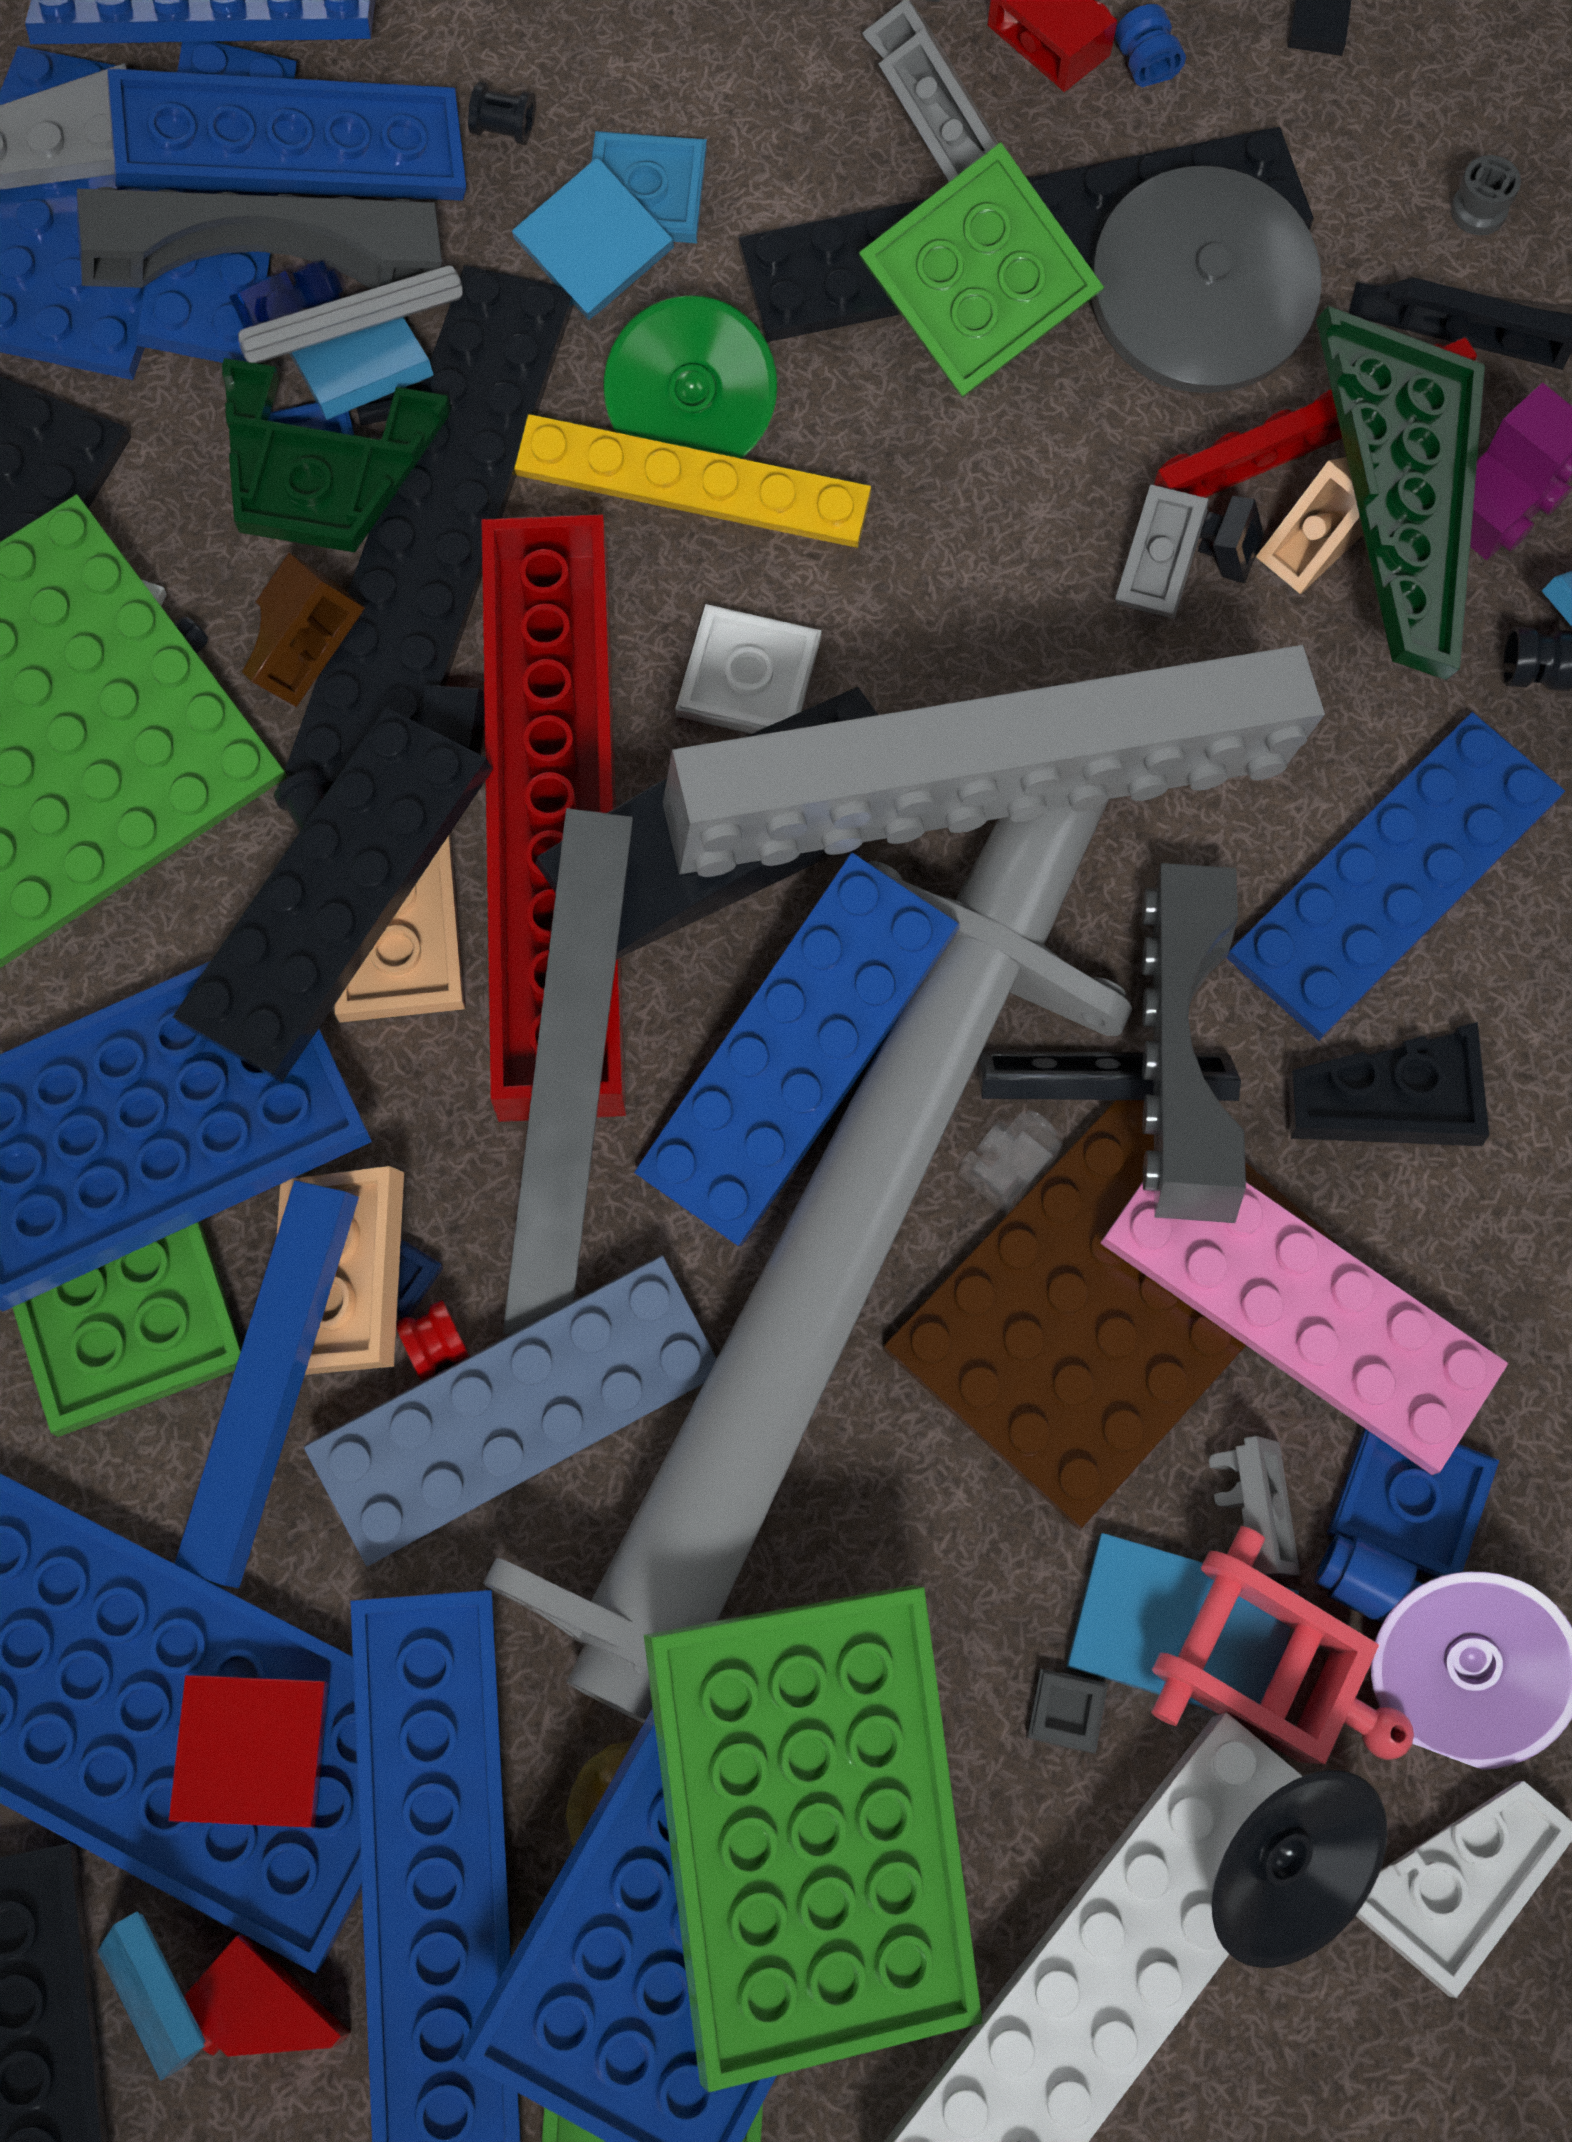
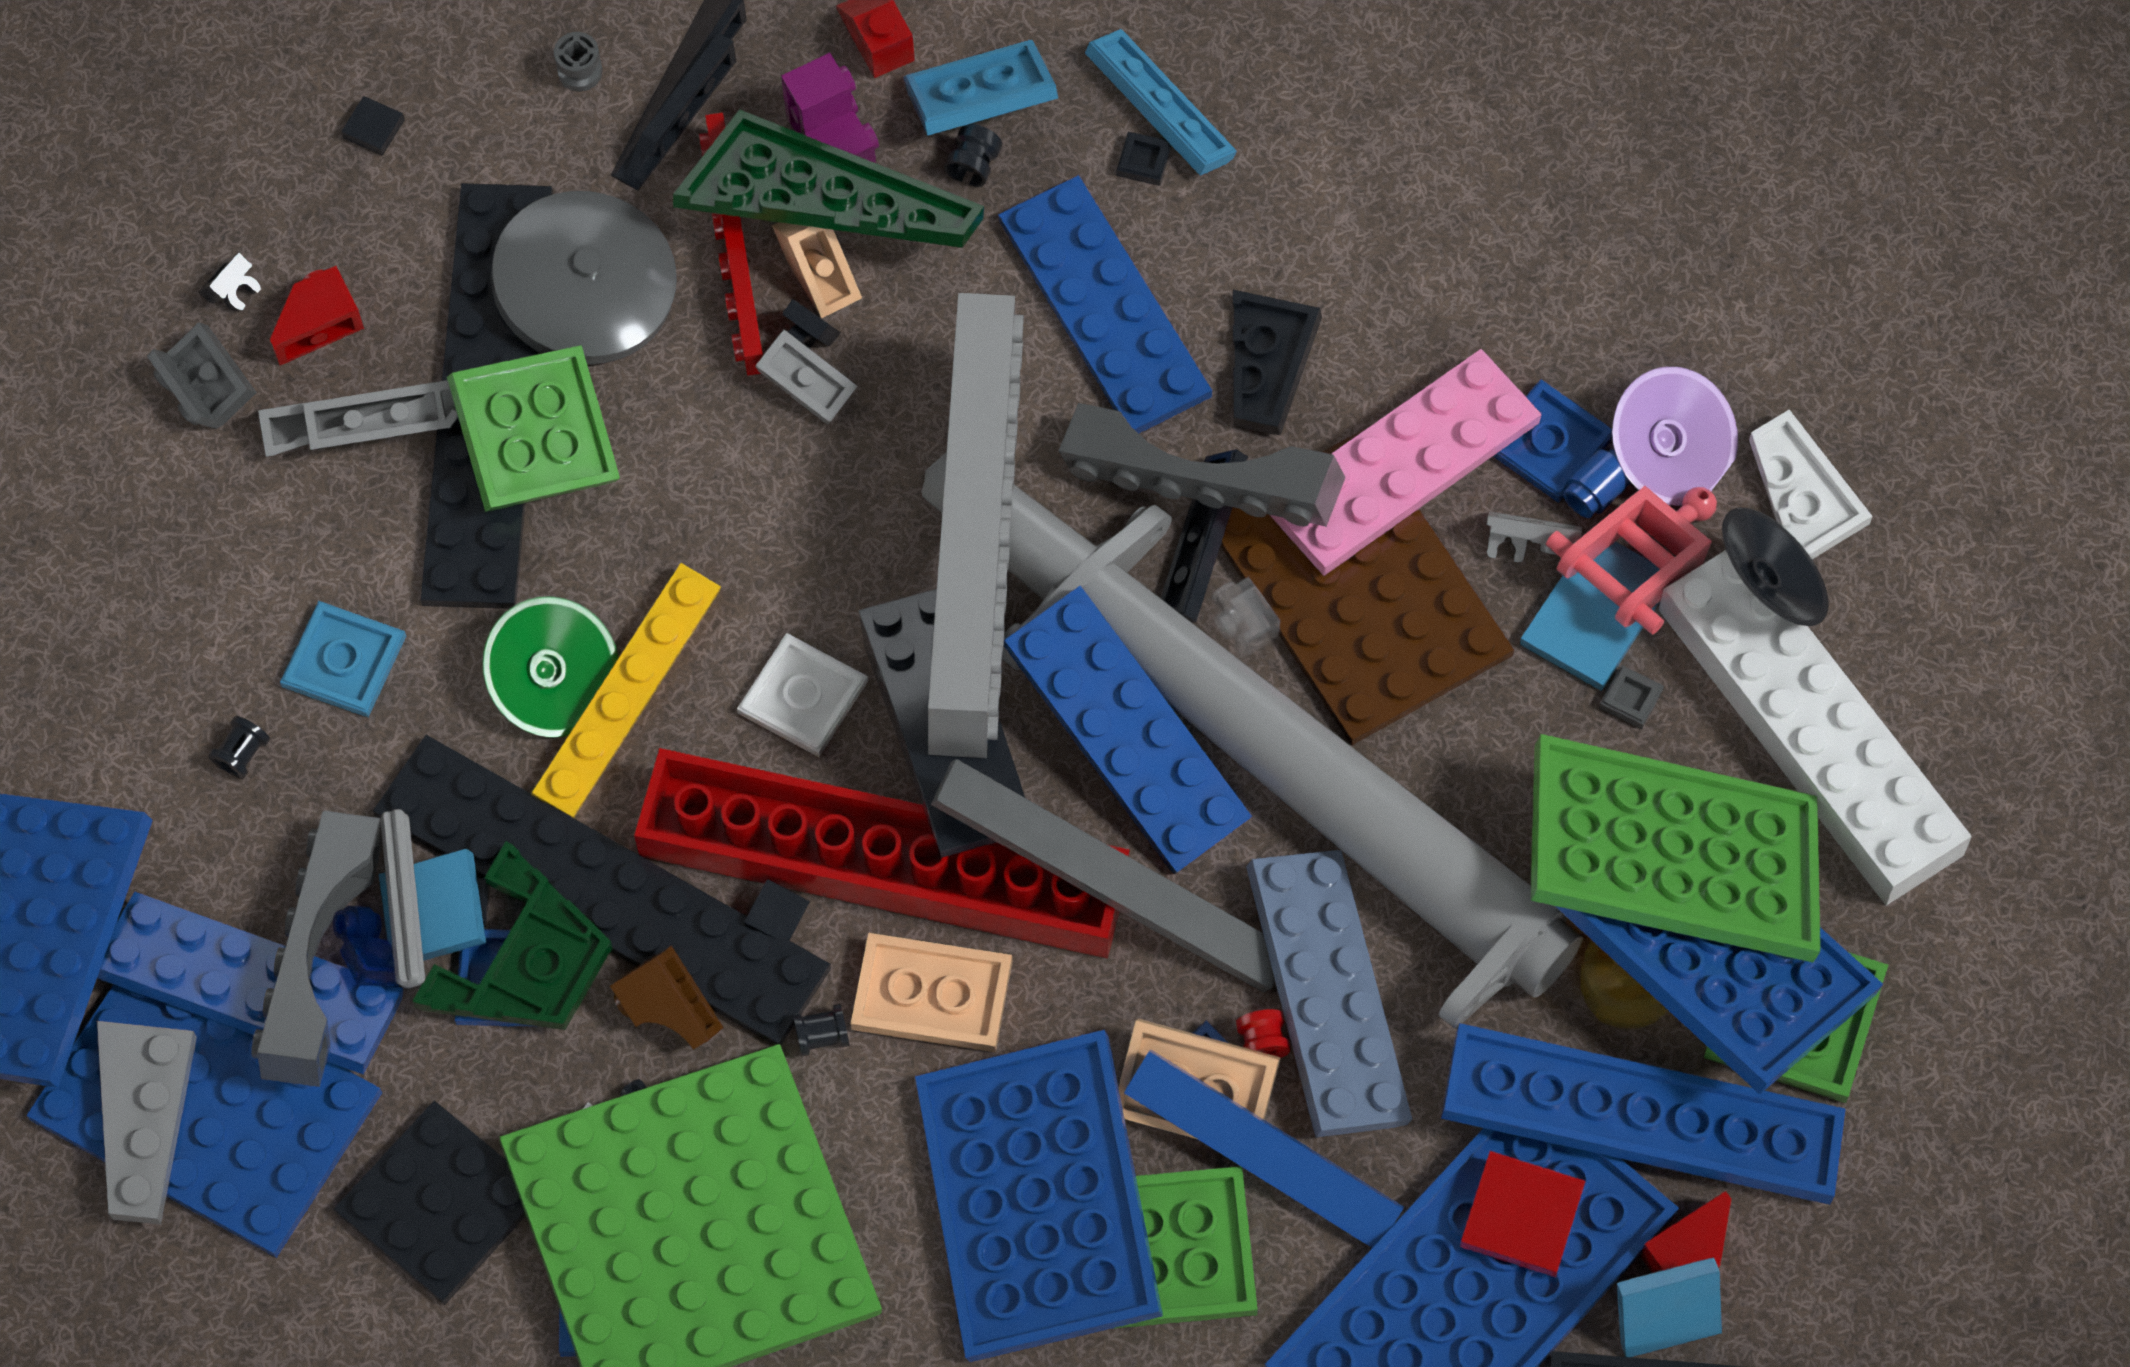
camera: 70 degrees left, 5 degrees down
(284, 135) = (221, 907): blue plate -> none
(333, 894) = (910, 1012): black plate -> none
(593, 238) = (386, 706): dark azure tile -> none
(1147, 41) = (362, 246): blue wheel -> none

